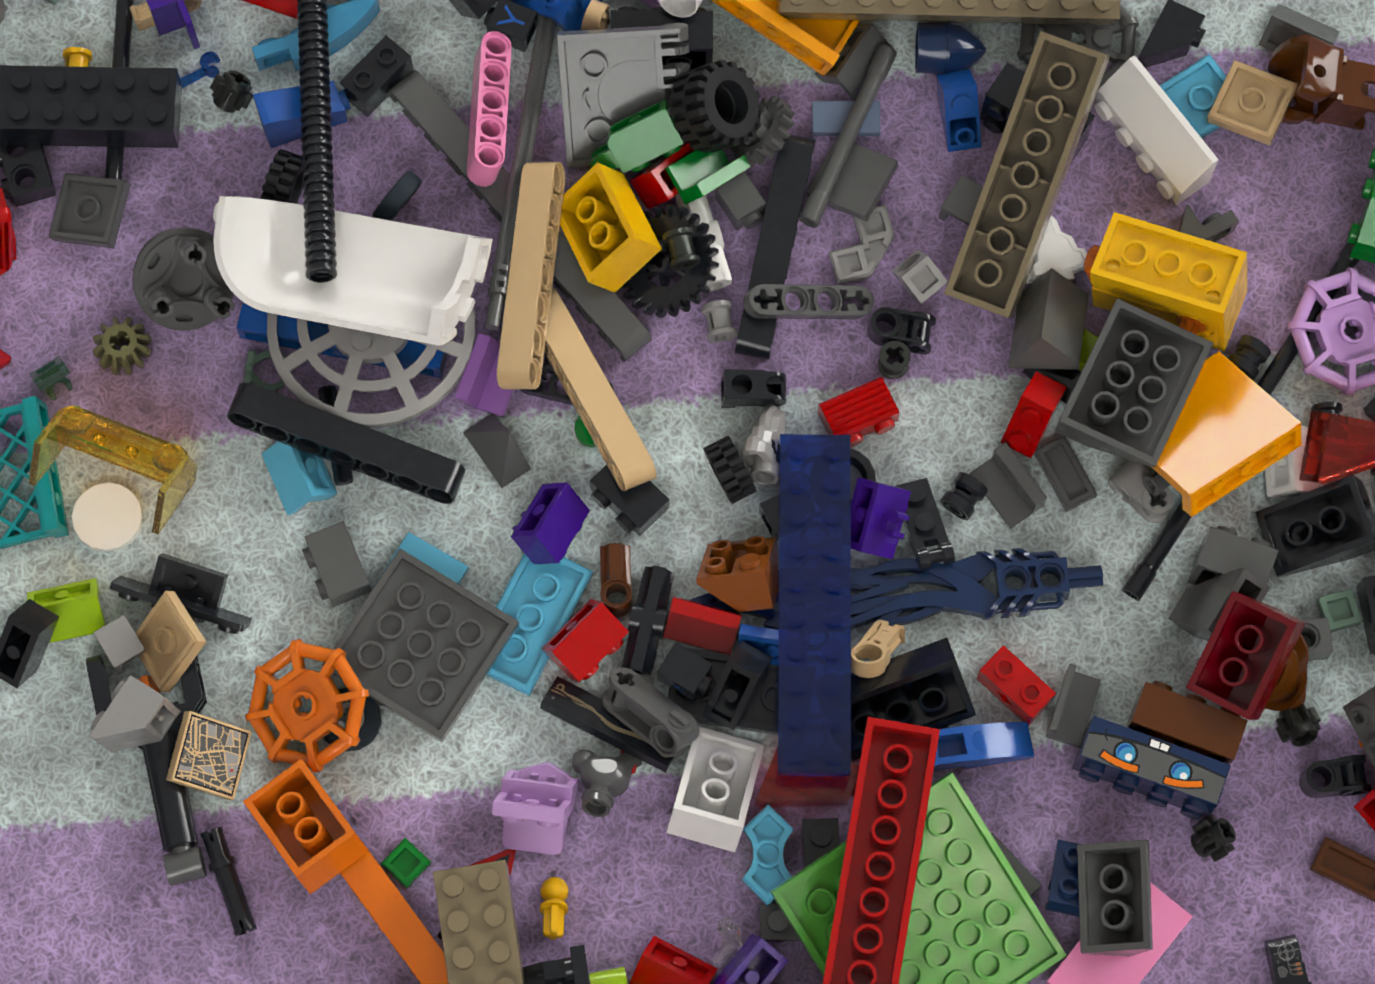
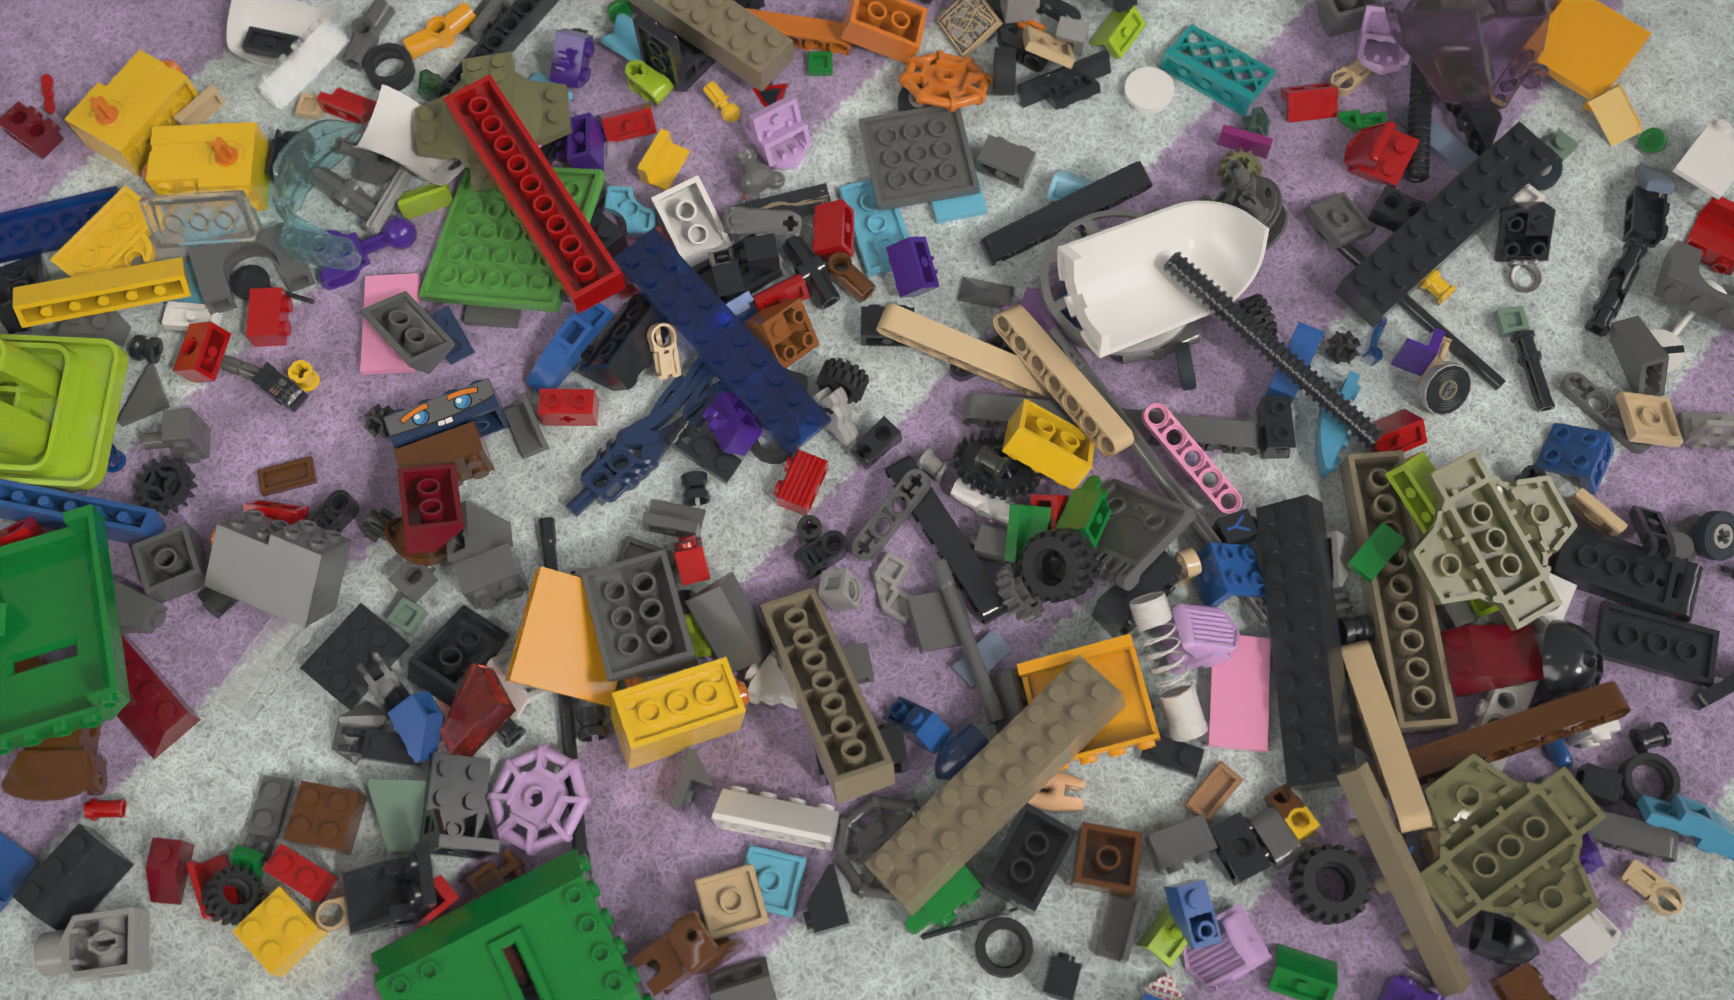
camera: 140 degrees right, 5 degrees down
(83, 369) = (1236, 138): none -> magenta tile
(119, 446) = (1140, 119): clear yellow windscreen -> none
(237, 659) = (1004, 71): none -> black tyre
(679, 889) = (662, 161): none -> yellow panel
(1243, 966) = (303, 375): none -> yellow bush

